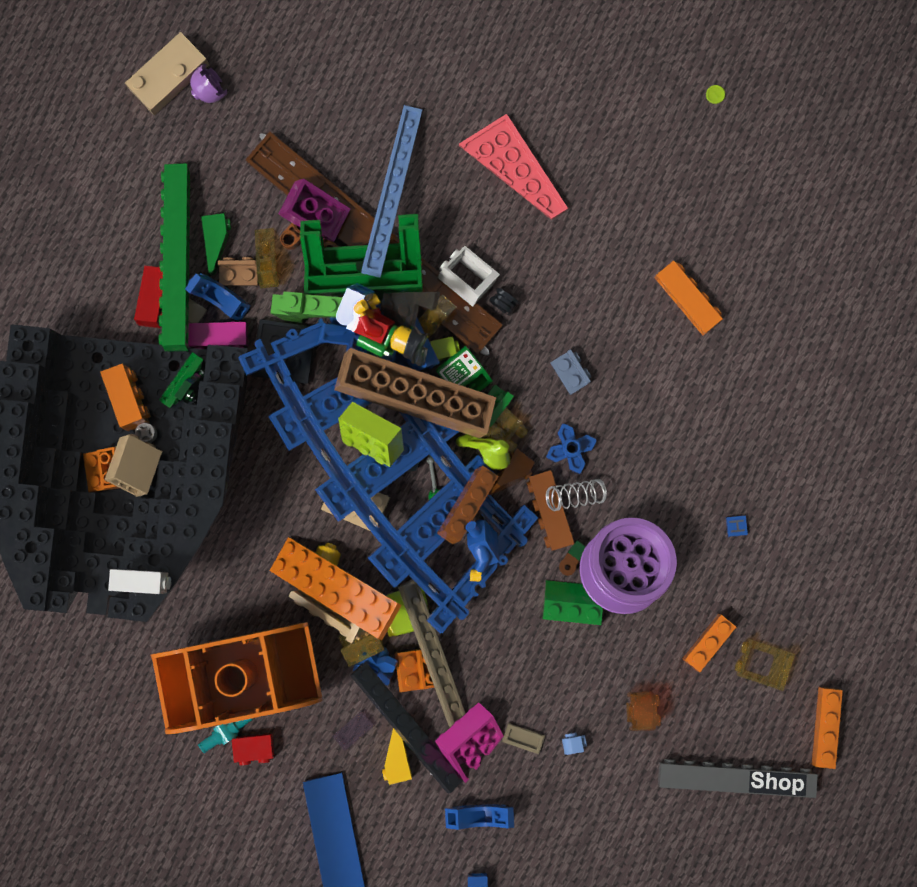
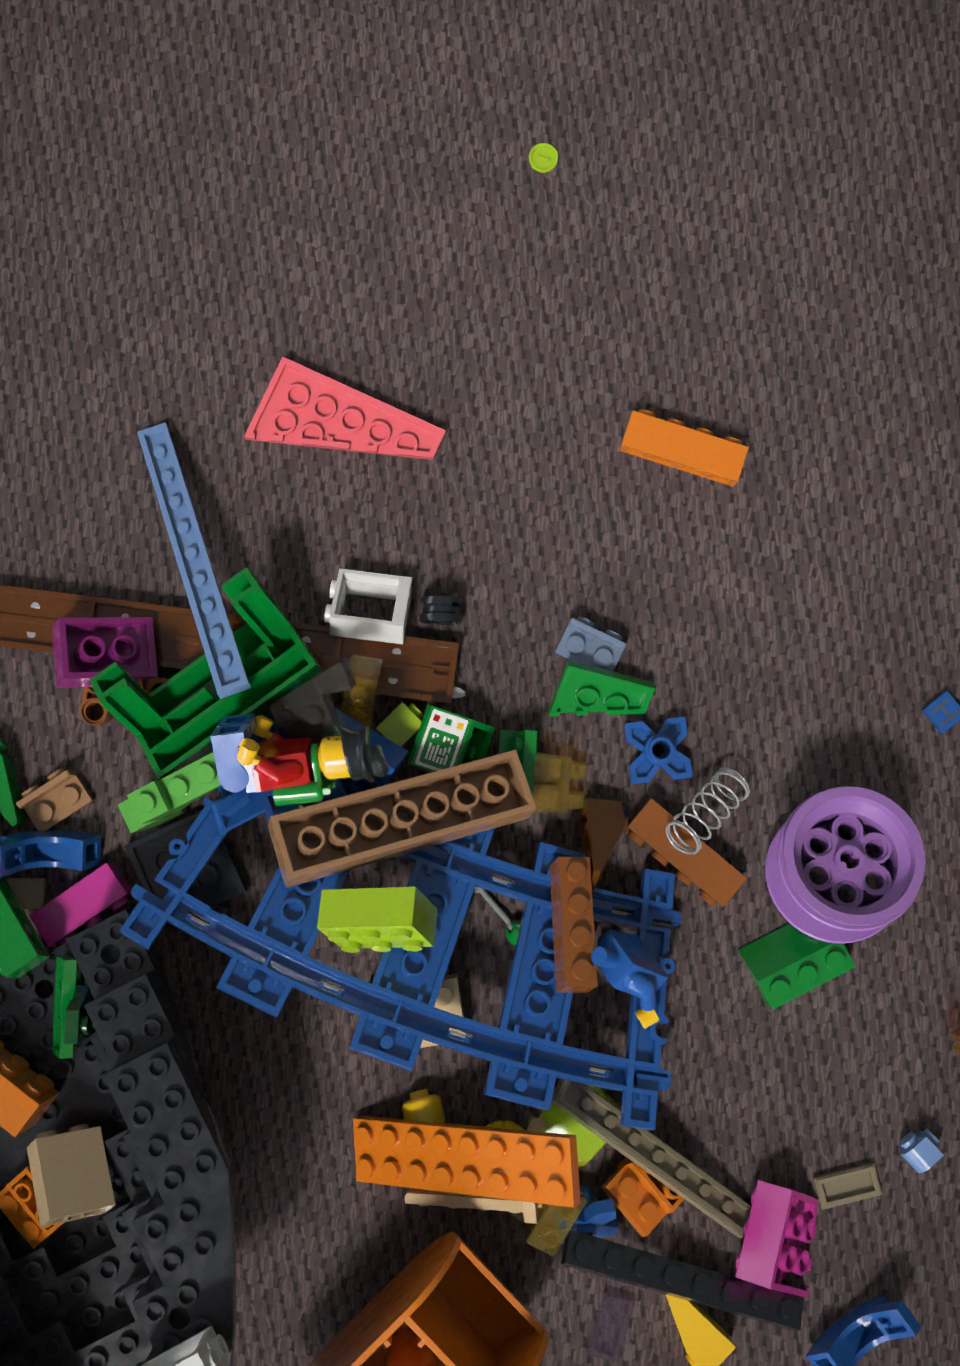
camera: 30 degrees left, 0 degrees up
(143, 430) = (56, 1116): light grey wheel -> none
(266, 258) = (81, 757): clear yellow slope -> none
(493, 451) = (559, 826): lime hair -> none
(557, 394) = (599, 690): none -> green wing
(568, 563) = (755, 899): reddish brown leg -> none

